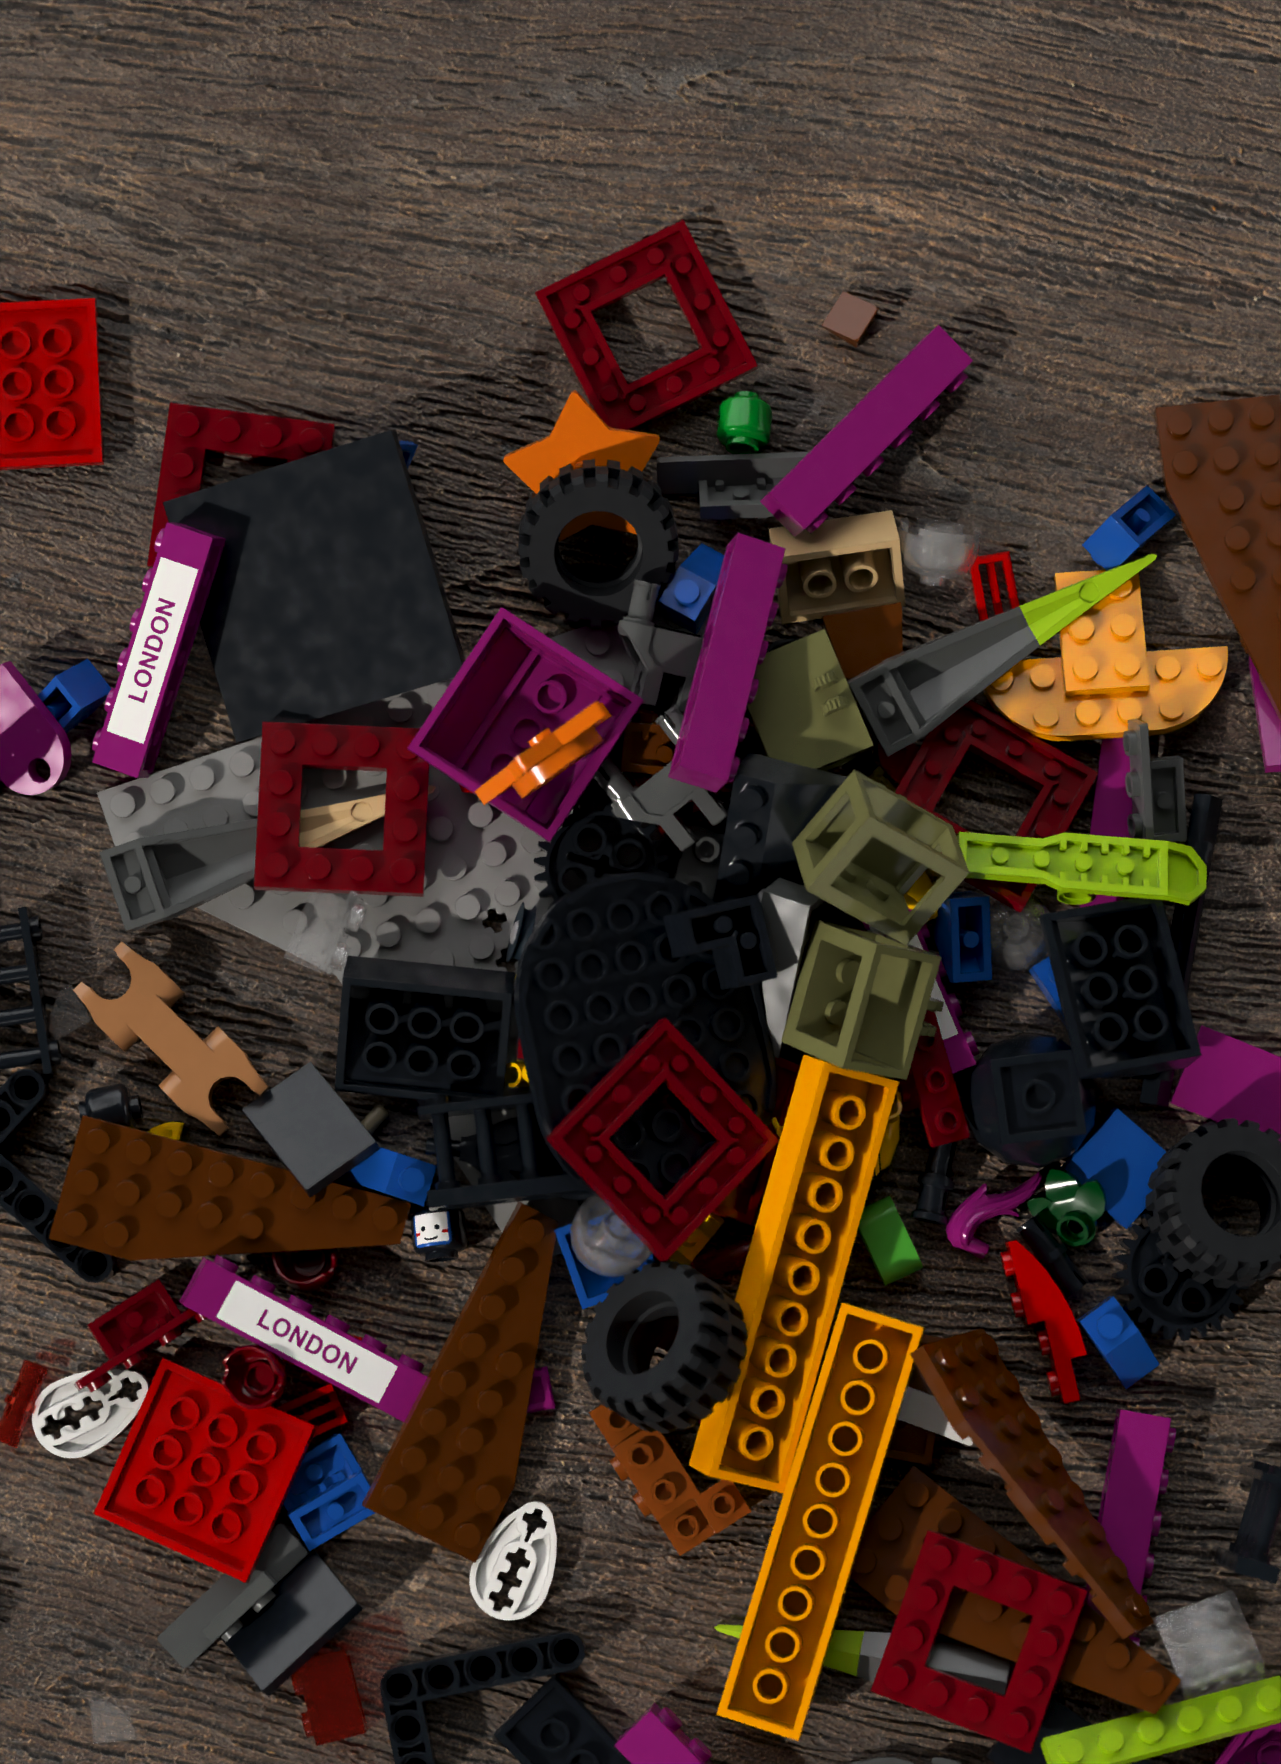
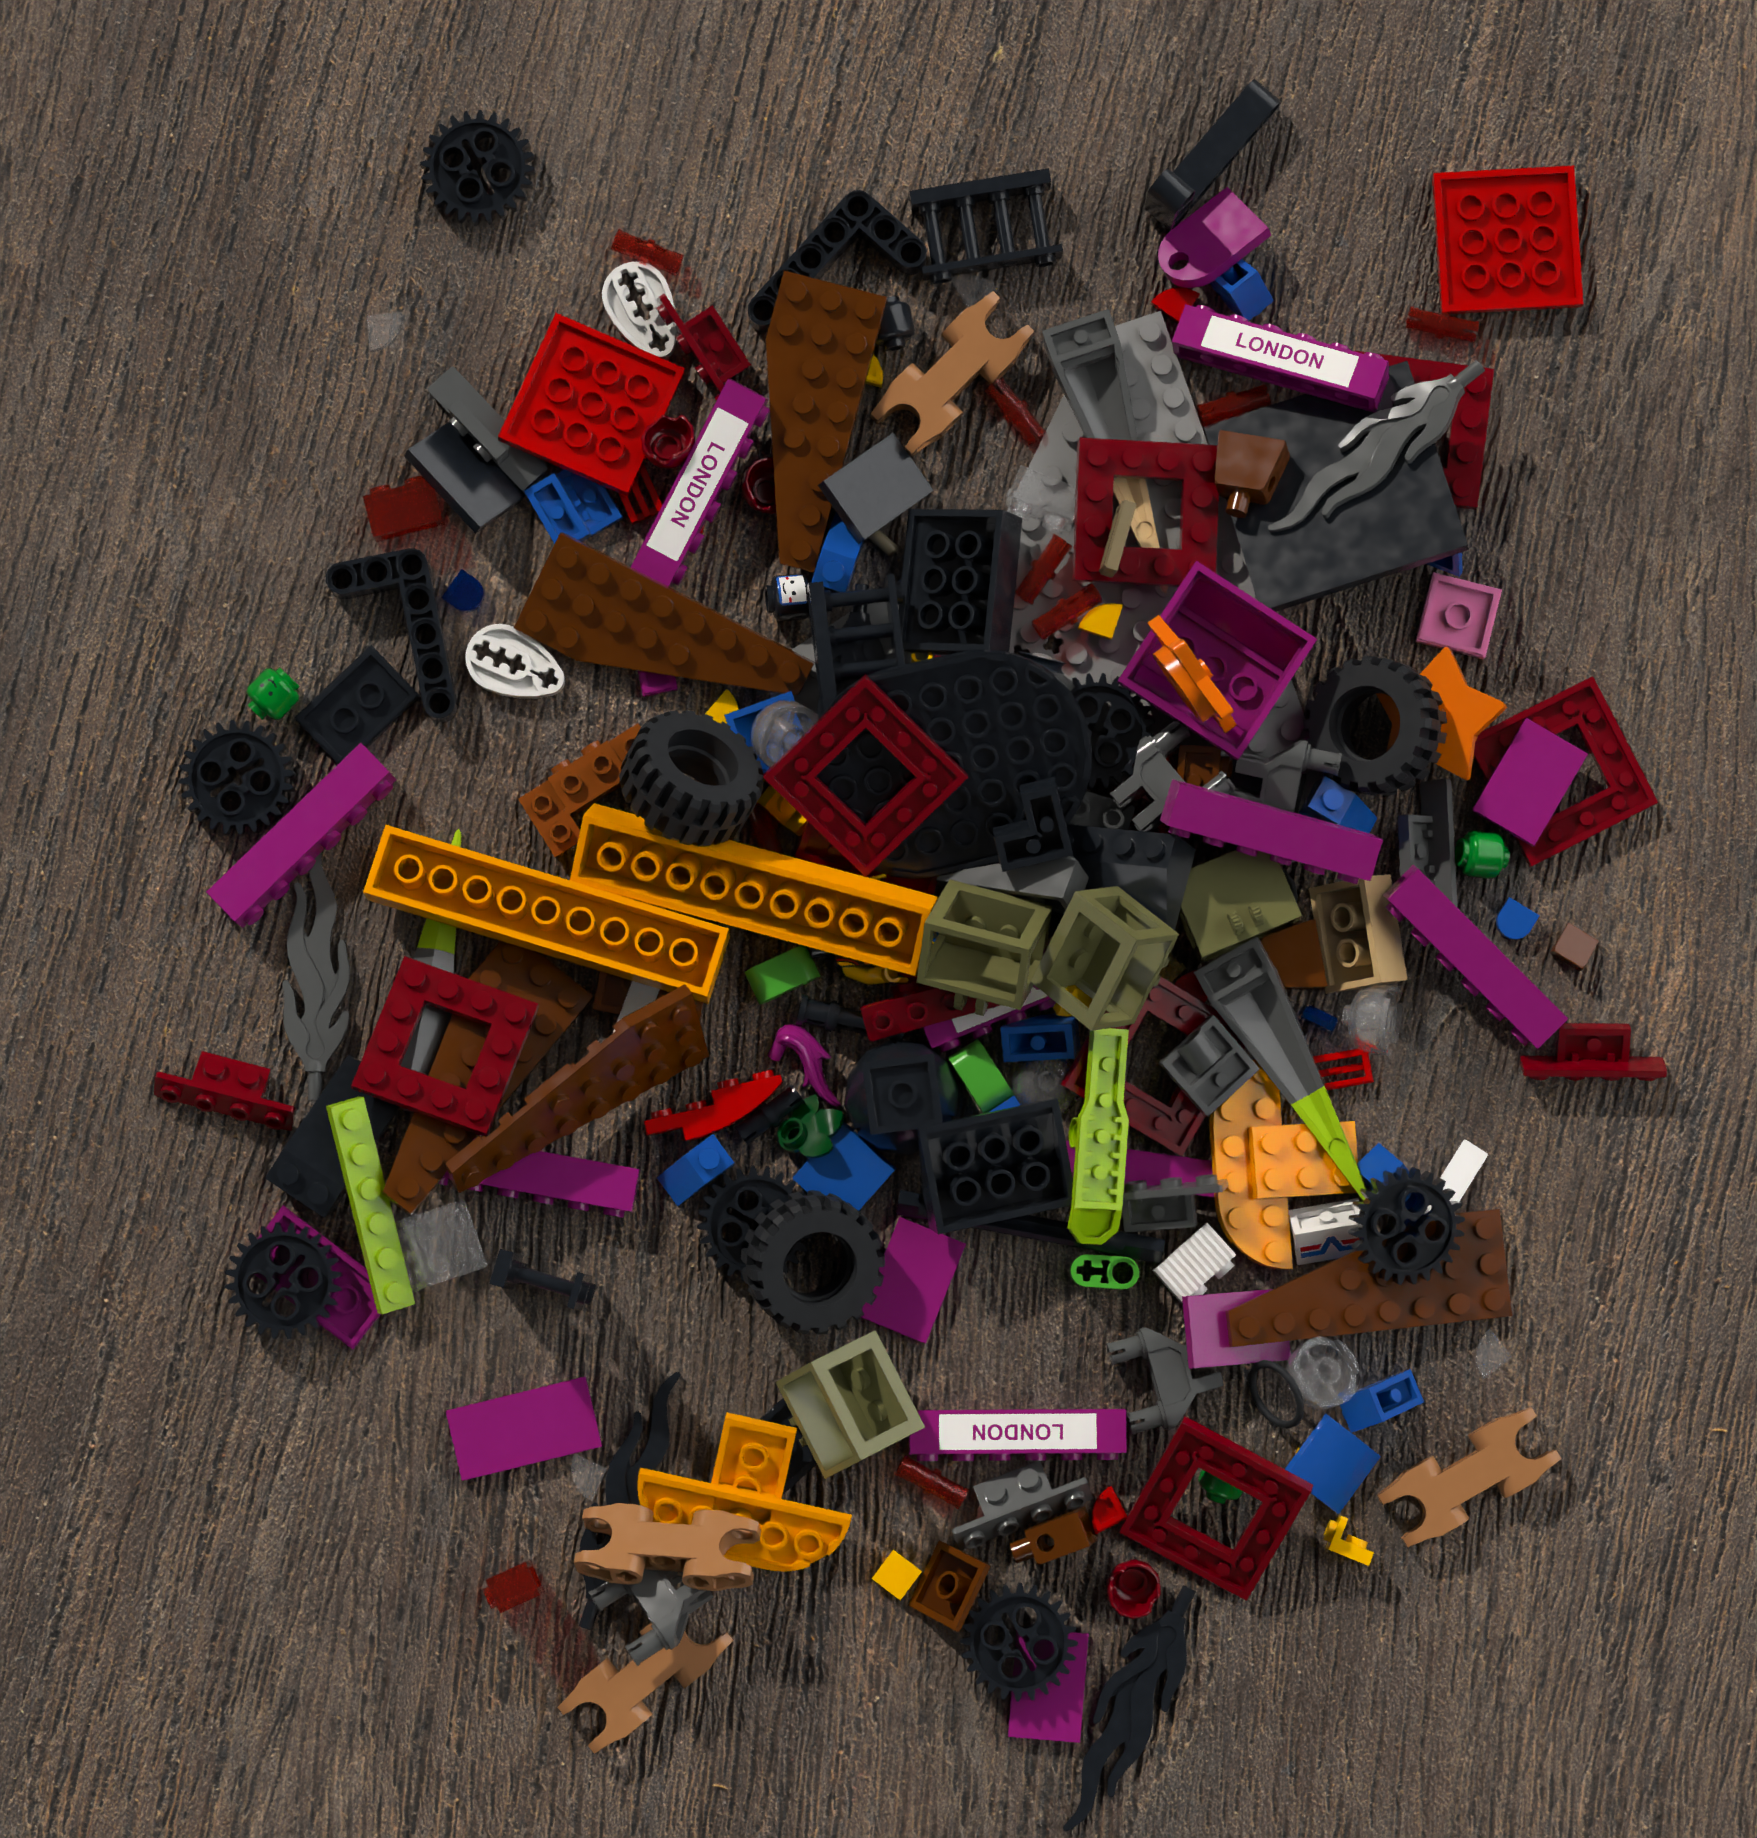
camera: 90 degrees right, 0 degrees up
(86, 776) = (1173, 301): none -> red tile
(116, 463) = (1442, 324): none -> clear red pin
(210, 707) = (1234, 404): none -> clear red pin
(216, 964) = (1015, 411): none -> clear red pin
(249, 522) = (1428, 406): none -> dark grey piece
(293, 688) = (1248, 469): none -> reddish brown torso
(377, 841) = (1117, 538): none -> dark tan tile
(408, 931) = (1043, 569): none -> clear red pin
(430, 1621) = (464, 593): none -> clear blue tile
(458, 903) = (1067, 611): none -> clear red pin
(461, 447) = (1458, 615): none -> bright pink tile
(469, 862) = (1101, 620): none -> yellow tile
(570, 1311) = (724, 705): none -> yellow tile
(660, 366) = (1529, 782): none -> magenta tile
(819, 386) = (1515, 920): none -> blue tile
(937, 612) = (1320, 1019): none -> clear blue tile
(976, 298) = (1593, 1052): none -> dark red bracket
(996, 739) = (1209, 1065): none -> dark grey plate
(1006, 1007) = (980, 1076): none -> bright green beam
(1122, 458) = (1462, 1169): none -> white sticker
(1182, 605) = (1322, 1231): none -> white panel
(1209, 493) = (1423, 1251): none -> black gear
(1223, 758) = (1195, 1263): none -> white brick
(1243, 874) = (1095, 1262): none -> bright green beam

